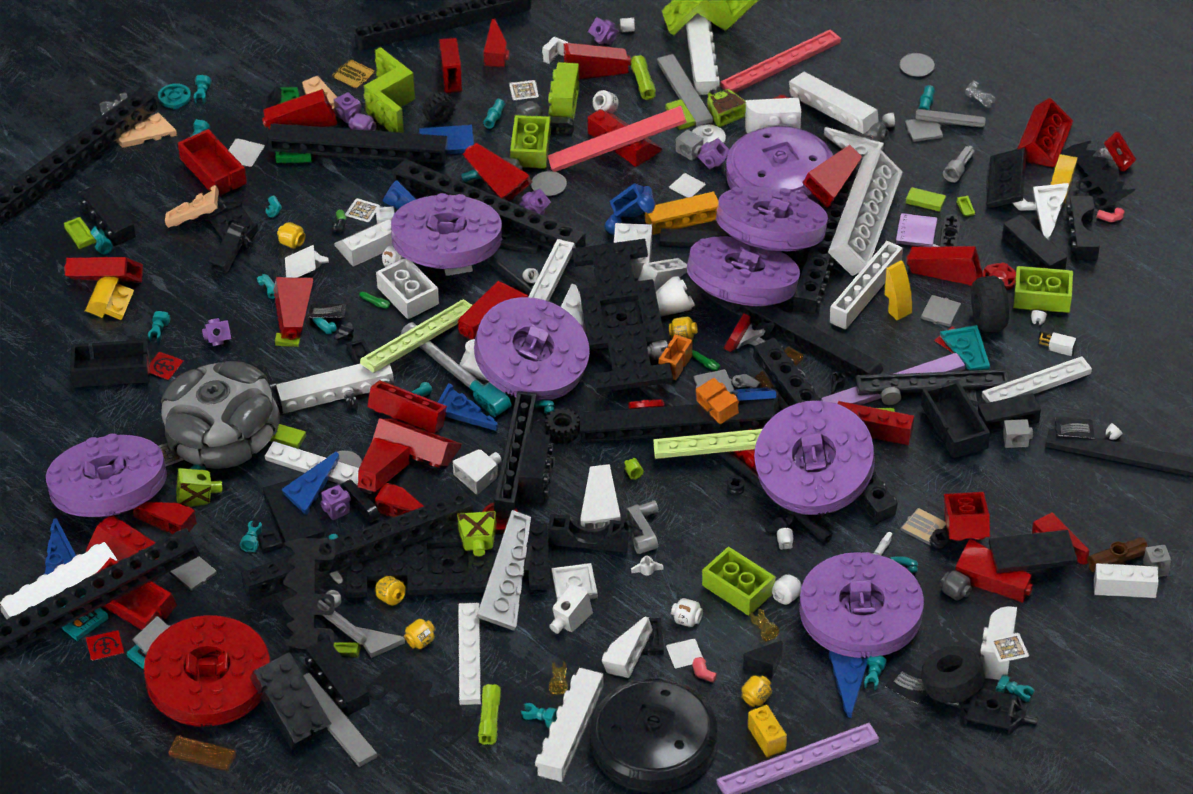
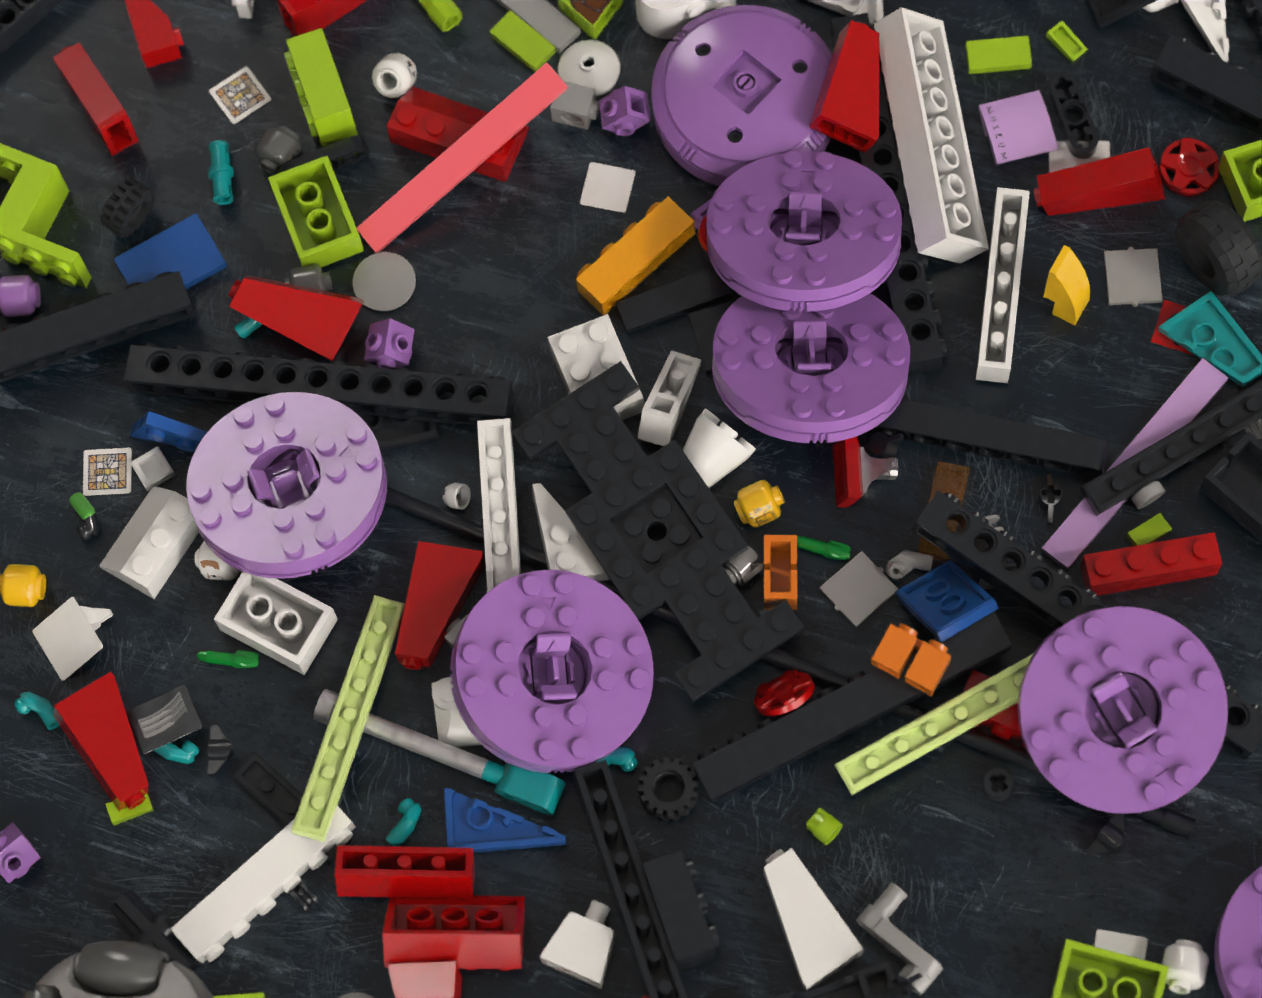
camera: 20 degrees left, 25 degrees up
(630, 203) = (547, 282): blue torso -> none
(785, 538) = (1129, 861): white hose -> none

